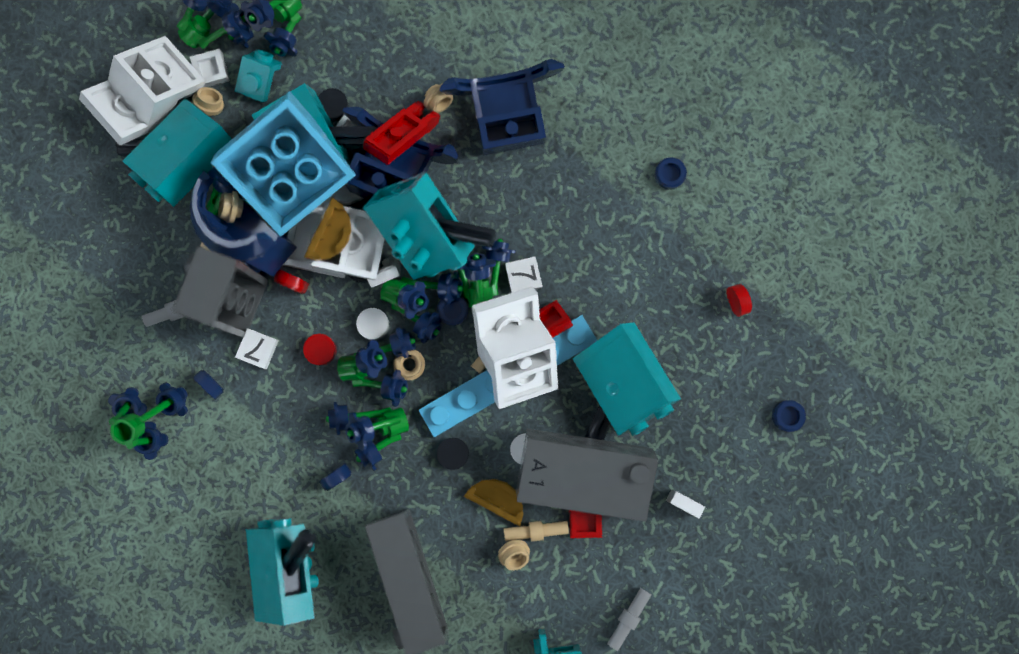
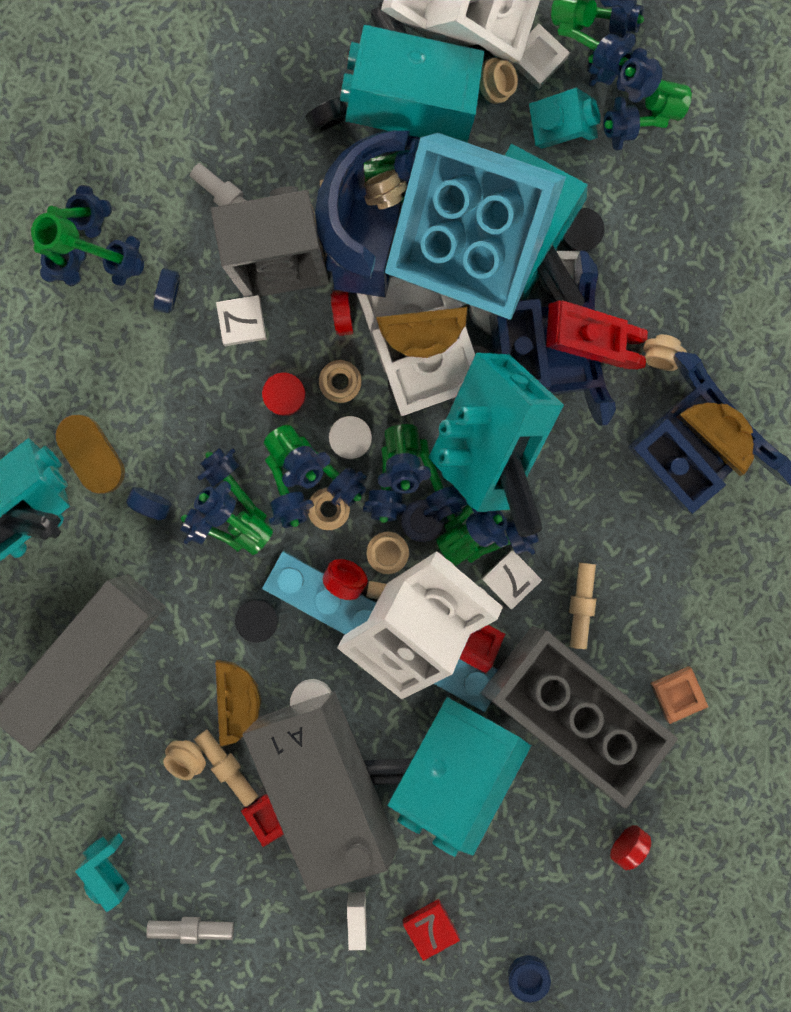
camera: 65 degrees right, 5 degrees up
(163, 217) = (327, 115): none -> black tile
(281, 497) = (90, 454): none -> pearl gold tile
(326, 302) = (333, 369): none -> tan plate
(390, 270) = (423, 420): white tile -> none
(459, 343) = (387, 552): none -> tan plate
(459, 380) = (345, 579): none -> red tile
(508, 90) = (723, 432): none -> pearl gold tile
(567, 240) = (582, 605): none -> tan bar
(633, 282) = (579, 715): none -> dark grey brick
(660, 213) = (679, 695): none -> nougat tile
(670, 173) = (735, 679): dark blue tile -> none
(719, 460) = (431, 929): none -> red tile

